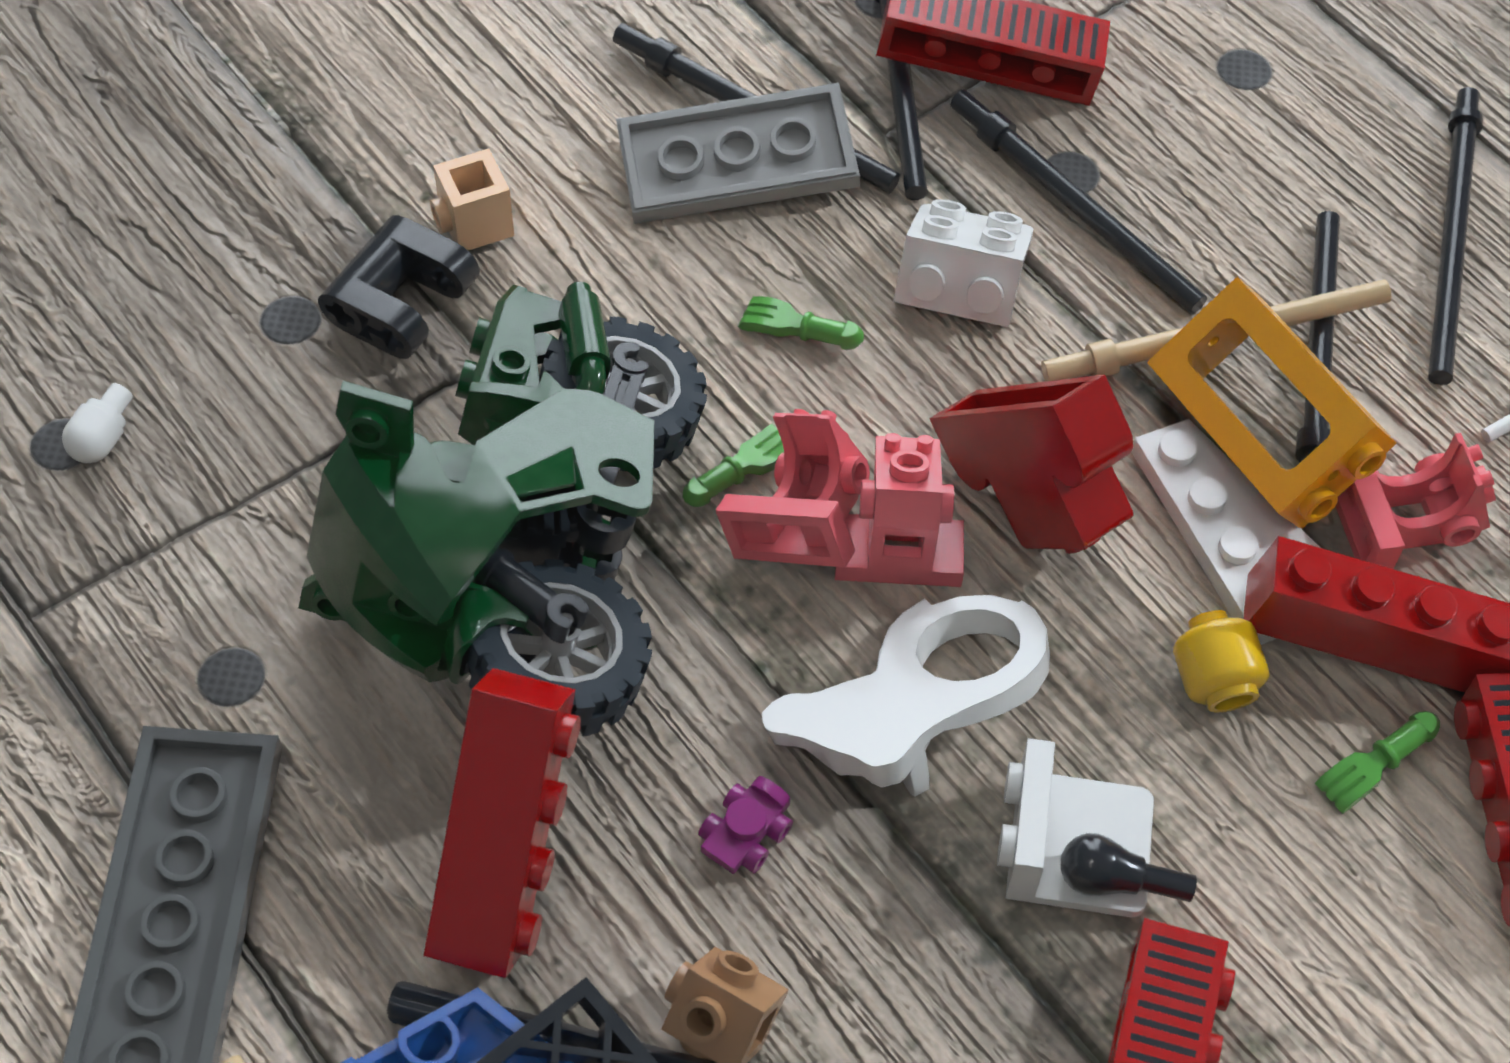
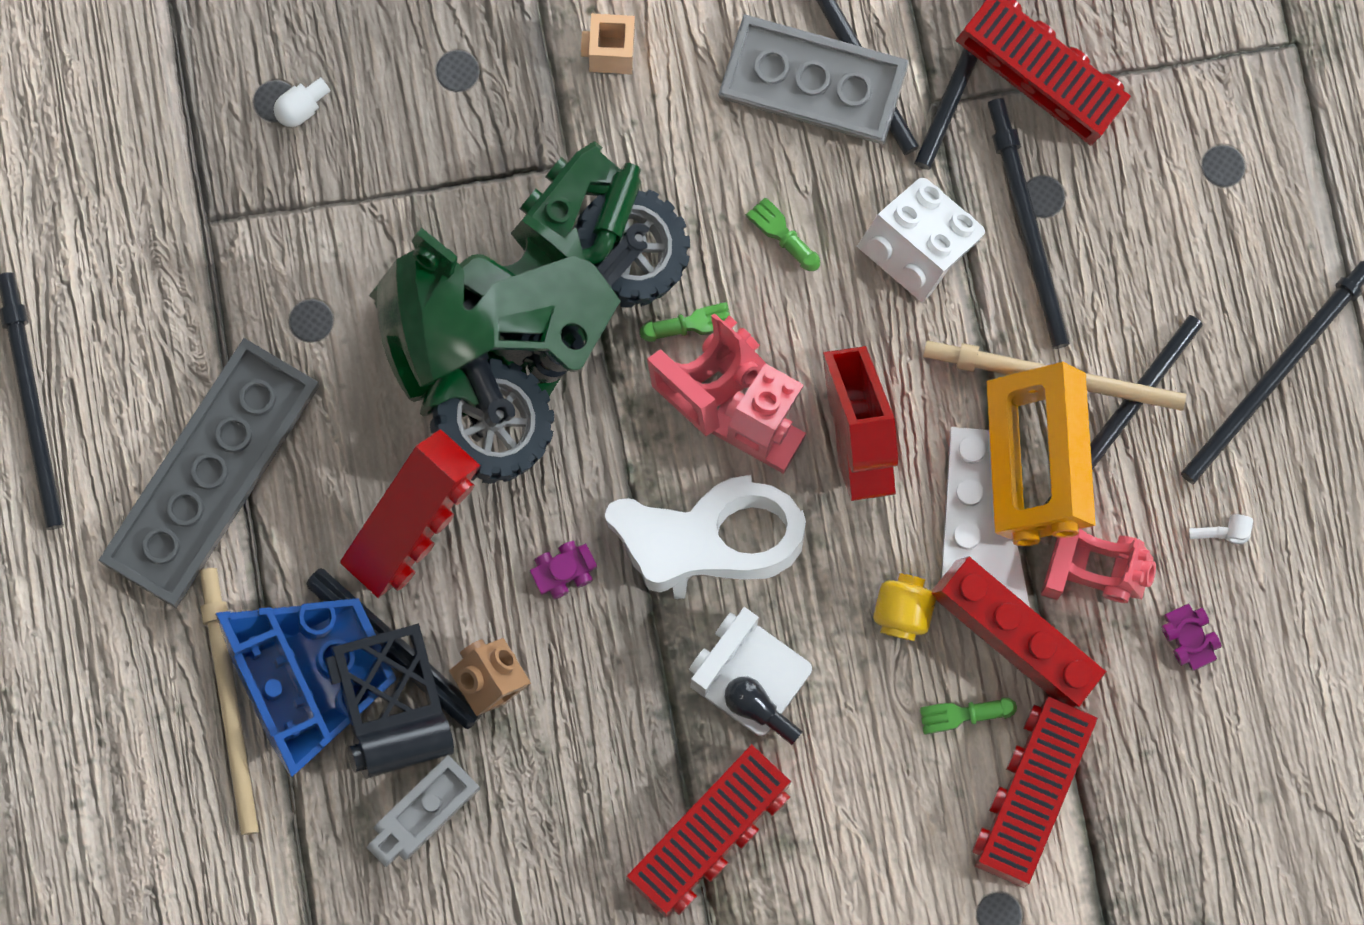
camera: 25 degrees right, 20 degrees up
(362, 293) = (525, 67): black connector -> none

